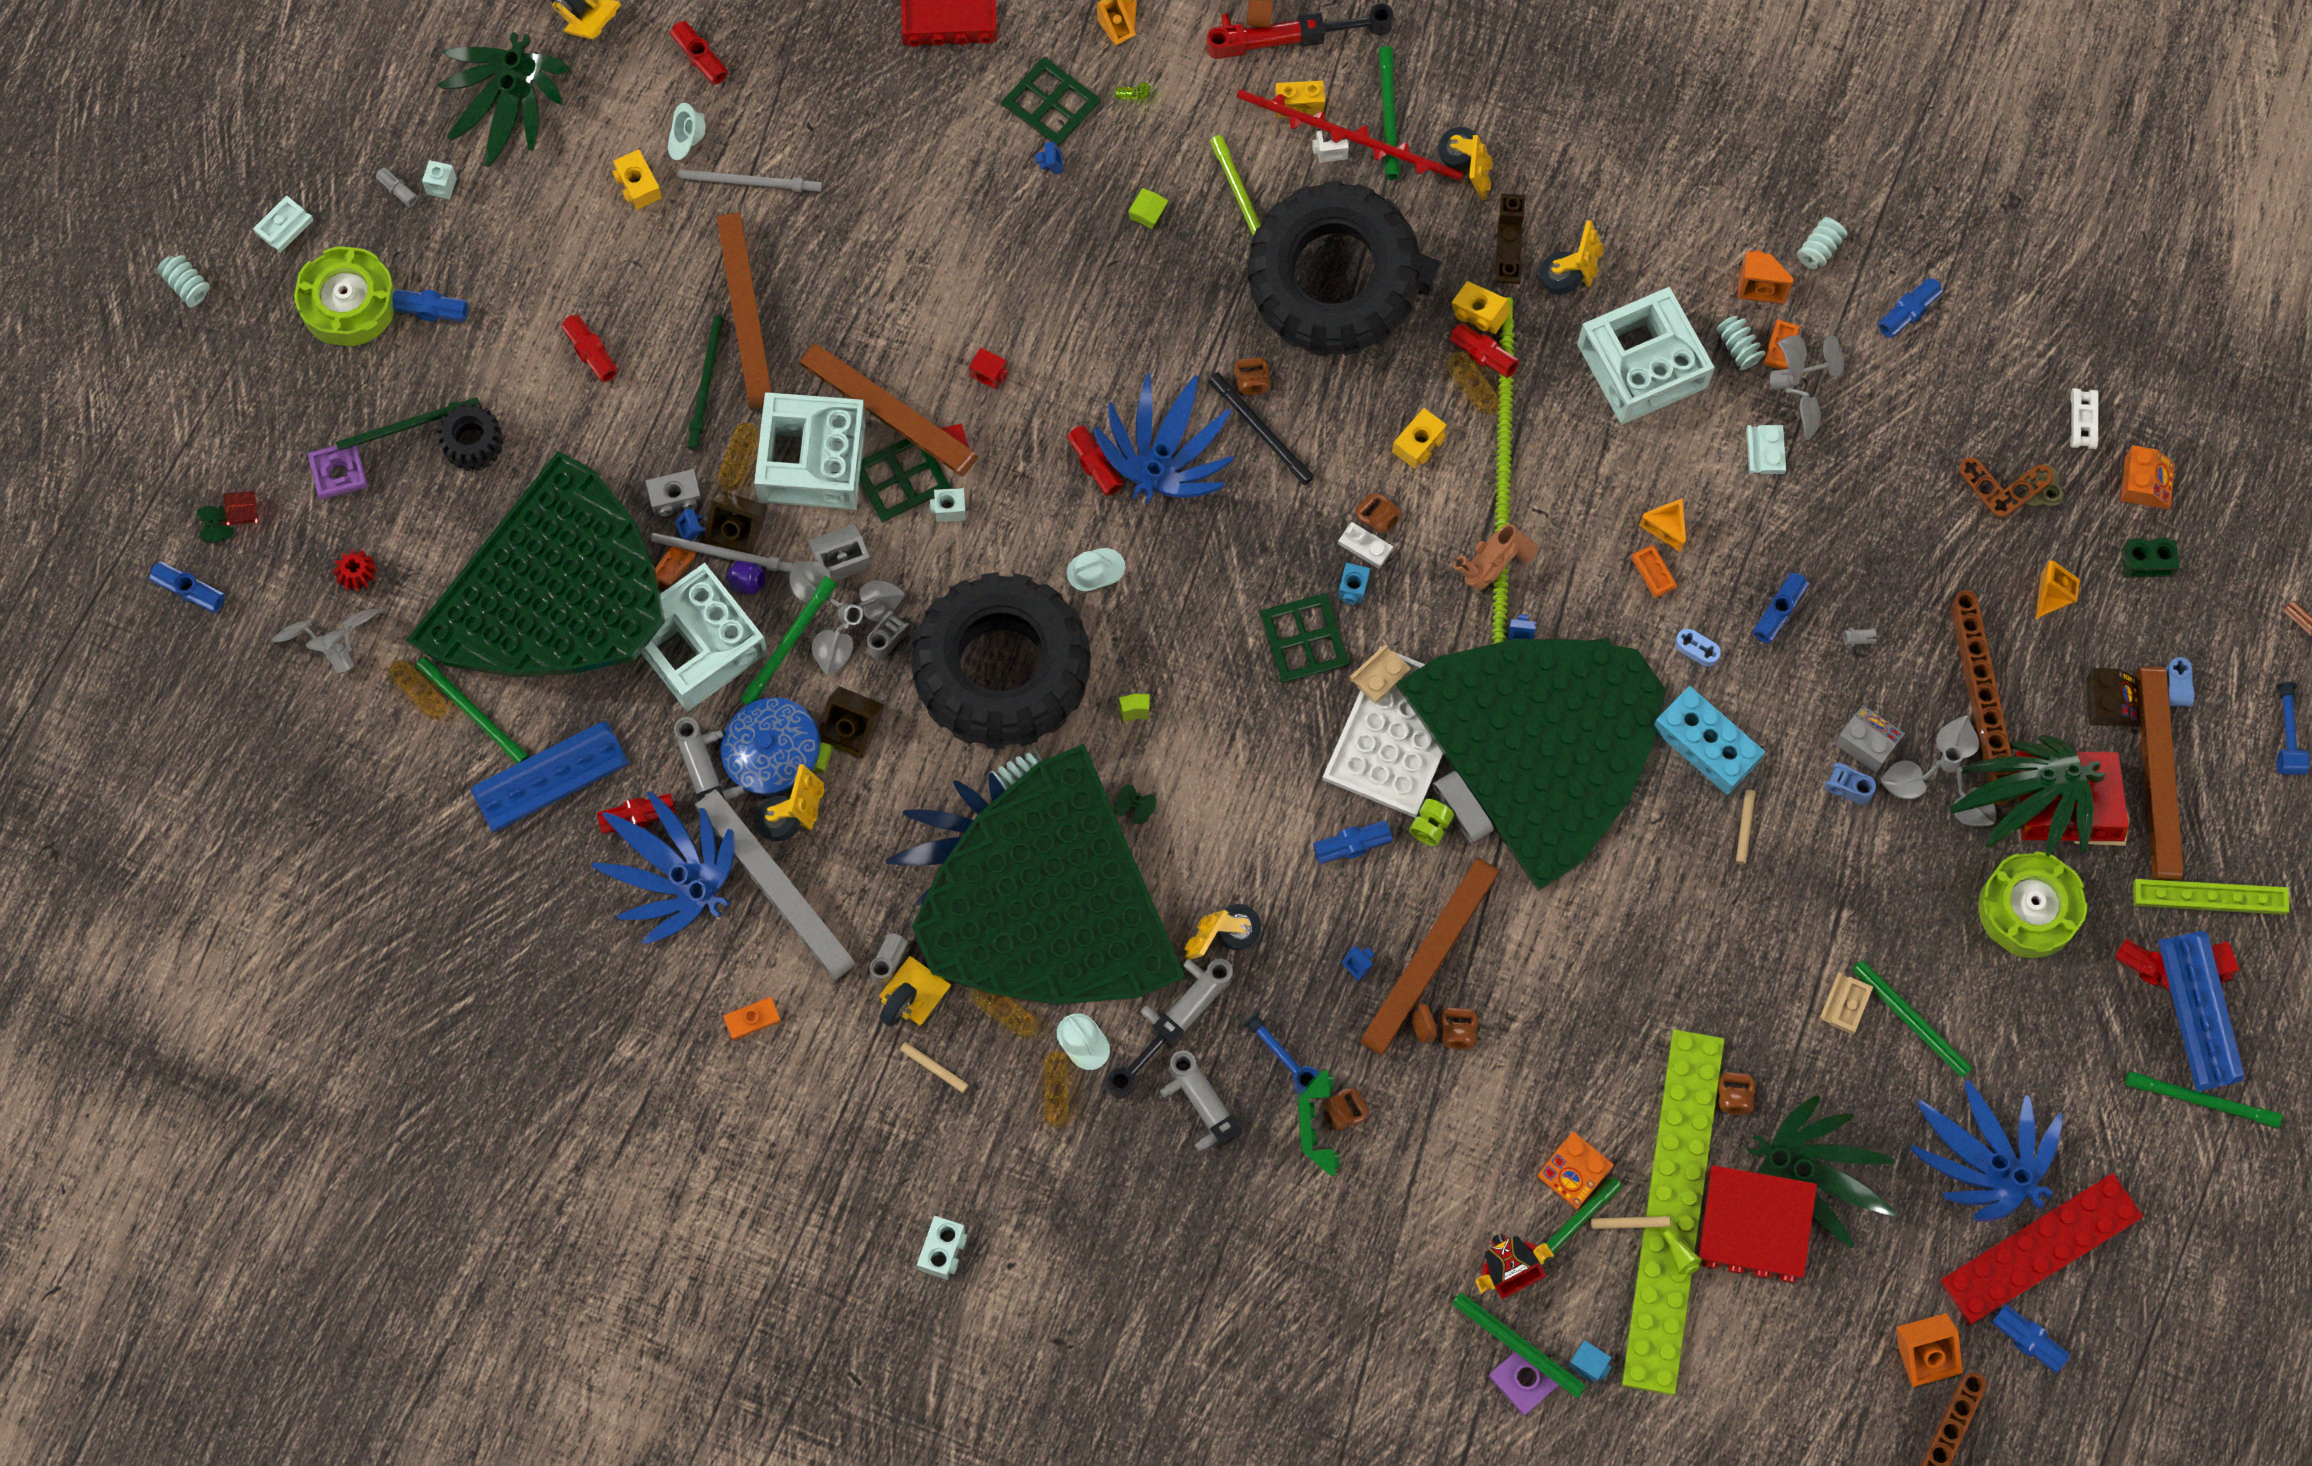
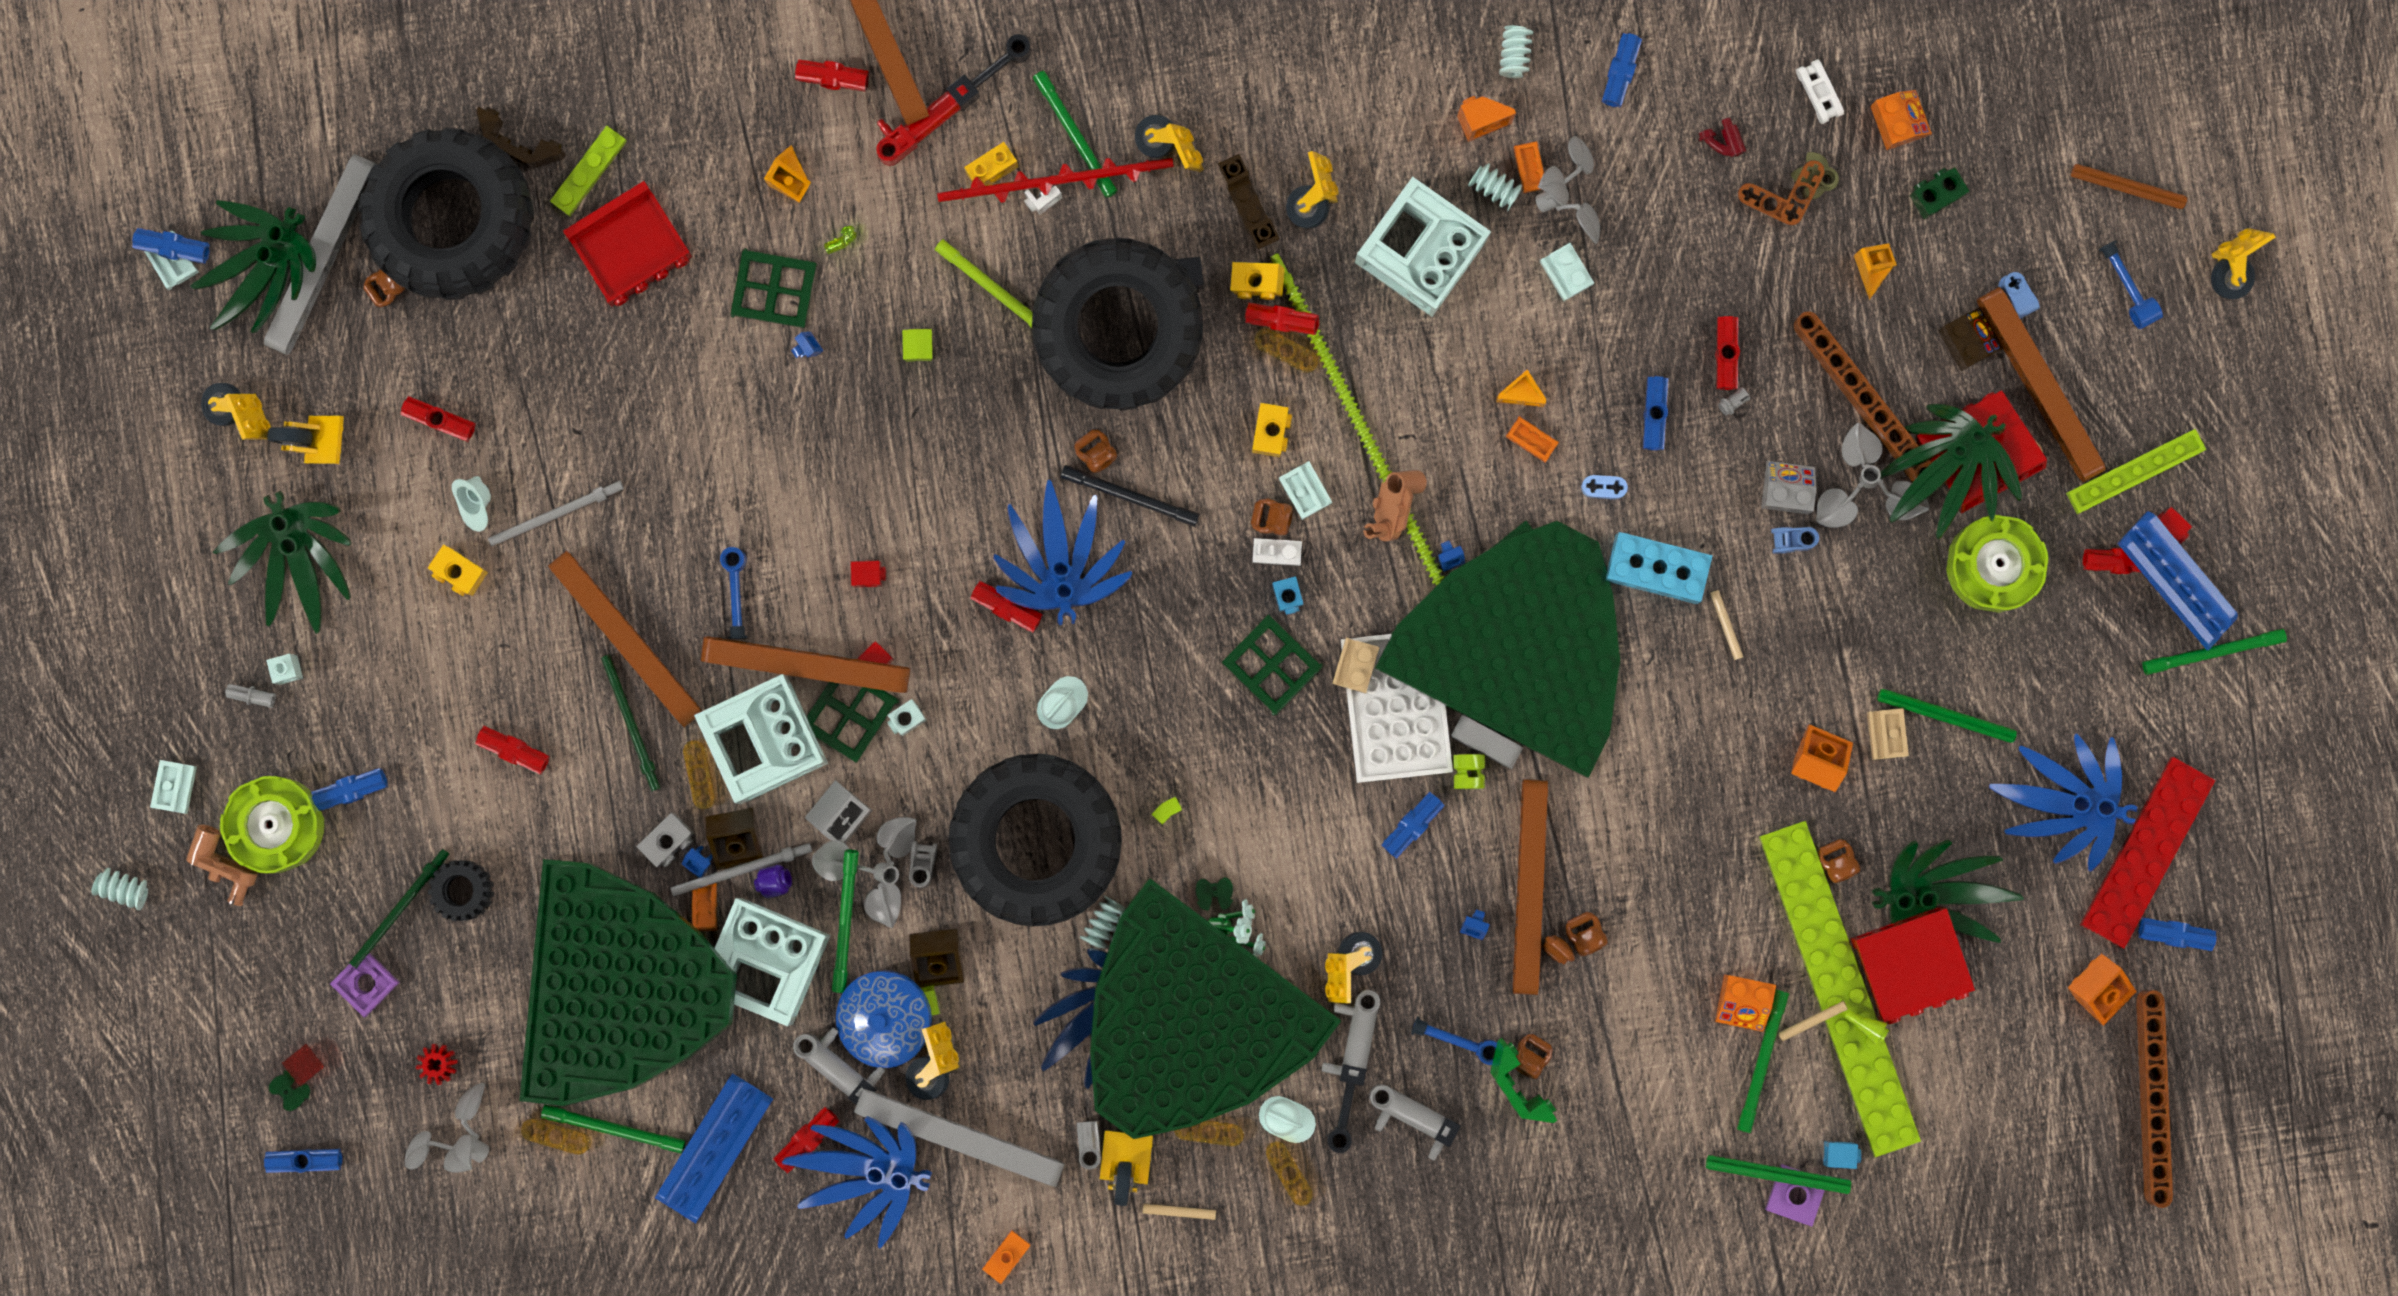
camera: 30 degrees left, 15 degrees up
(271, 288) = (203, 856): none -> nougat piece
(875, 304) = (737, 631): none -> blue piece
(1139, 840) = (1242, 929): none -> plant
(1421, 505) = (1305, 490): none -> light aqua plate
(1512, 1265) = (1738, 1115): torso -> none
(1770, 990) = (1822, 758): none -> orange slope
(1869, 602) = (1727, 338): none -> red piece
(1981, 416) = (1734, 143): none -> dark red plant

